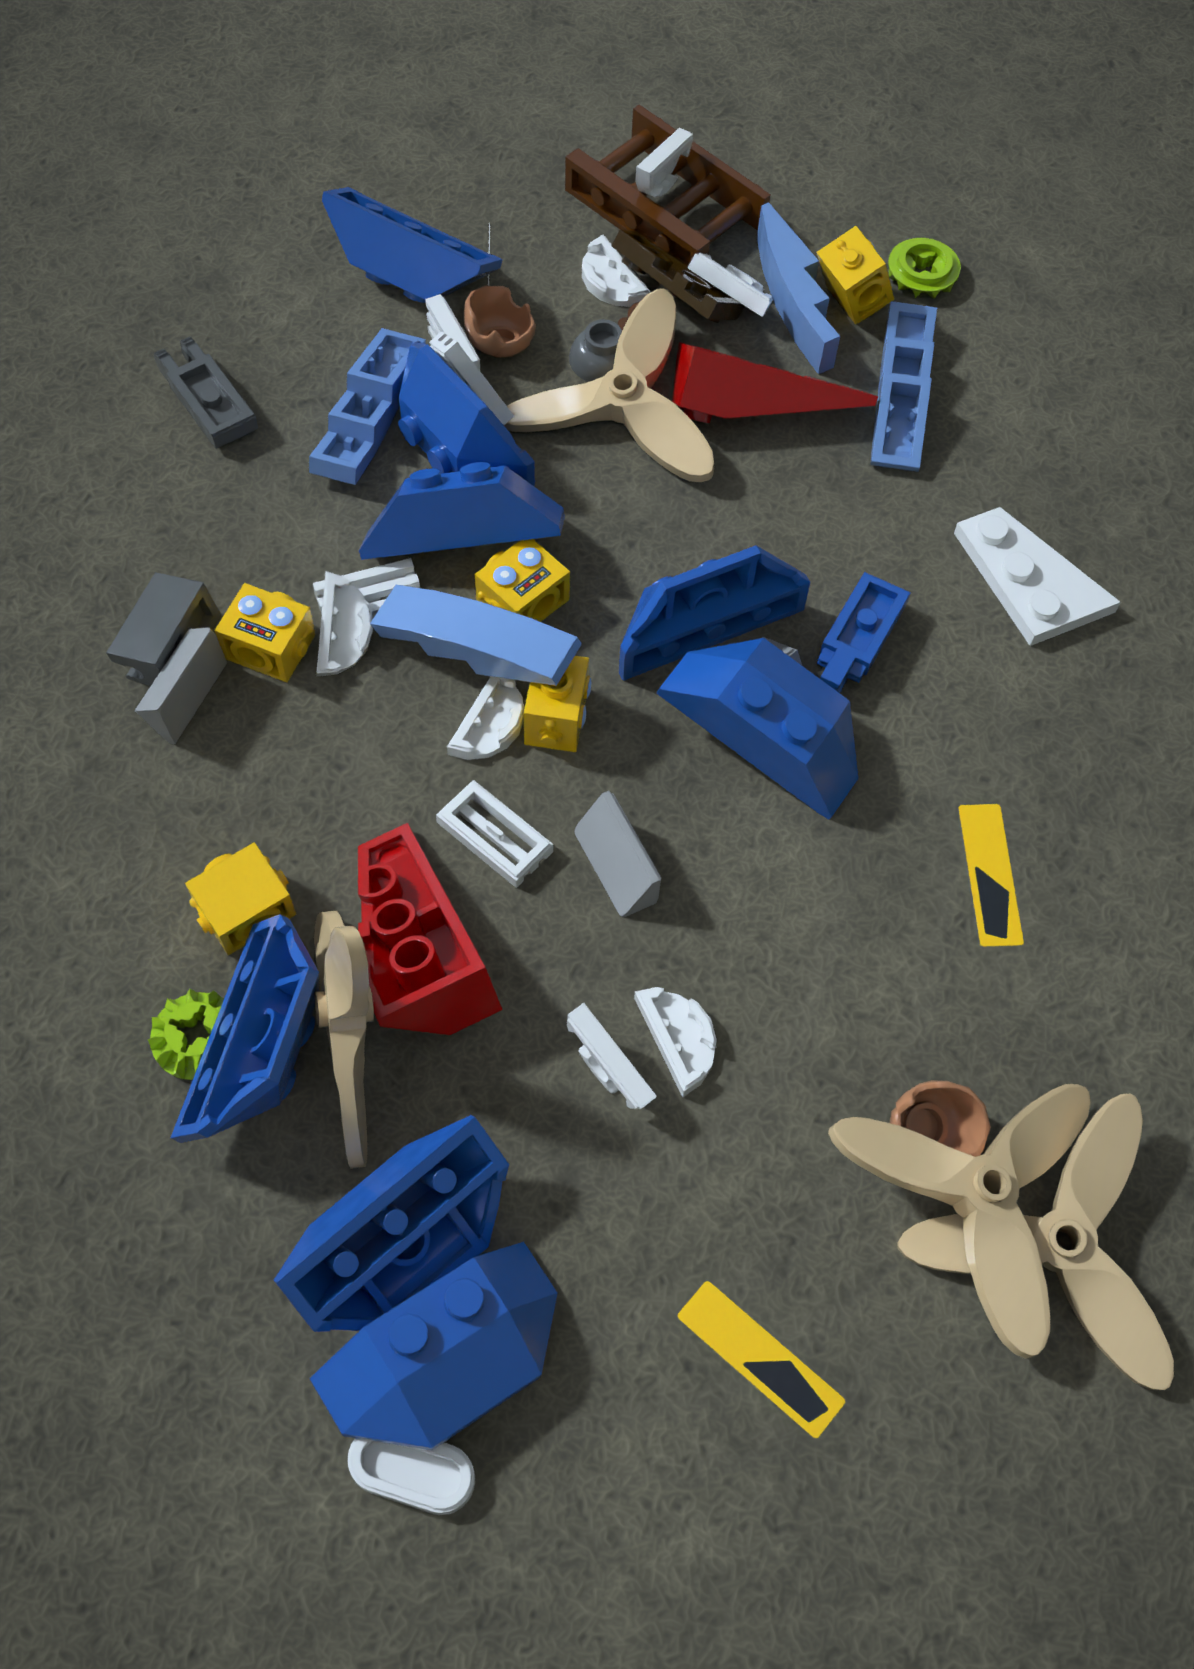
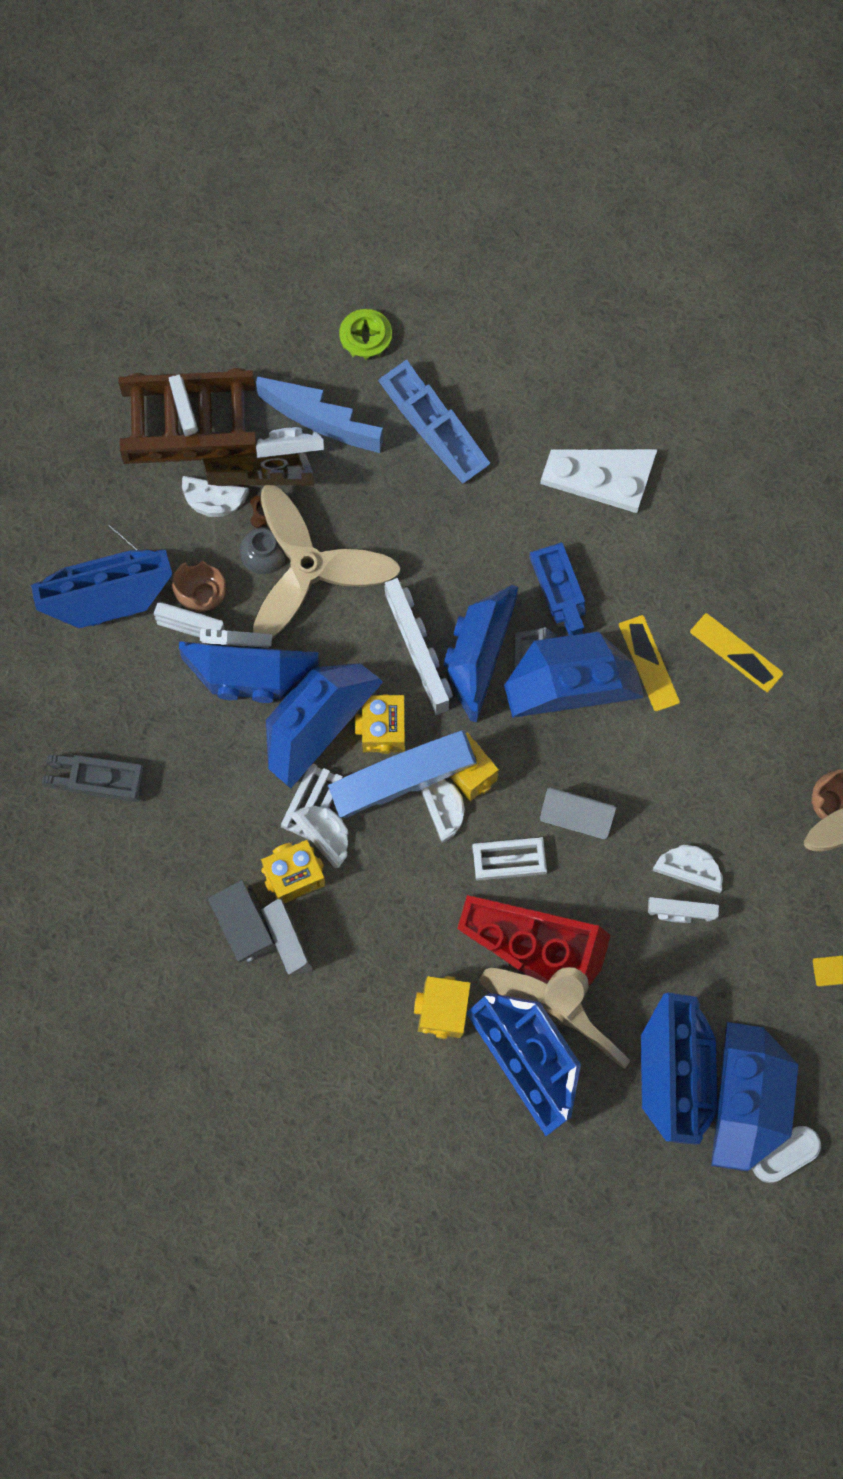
camera: 45 degrees left, 10 degrees up
(170, 1044) = (488, 1101): lime gear -> none
(365, 409) = (186, 700): medium blue slope -> none
(636, 565) = (413, 634): none -> white plate
(733, 388) = (359, 507): red wedge -> none
(856, 275) = (346, 379): yellow head -> none
(875, 795) = (649, 663): none -> yellow sticker

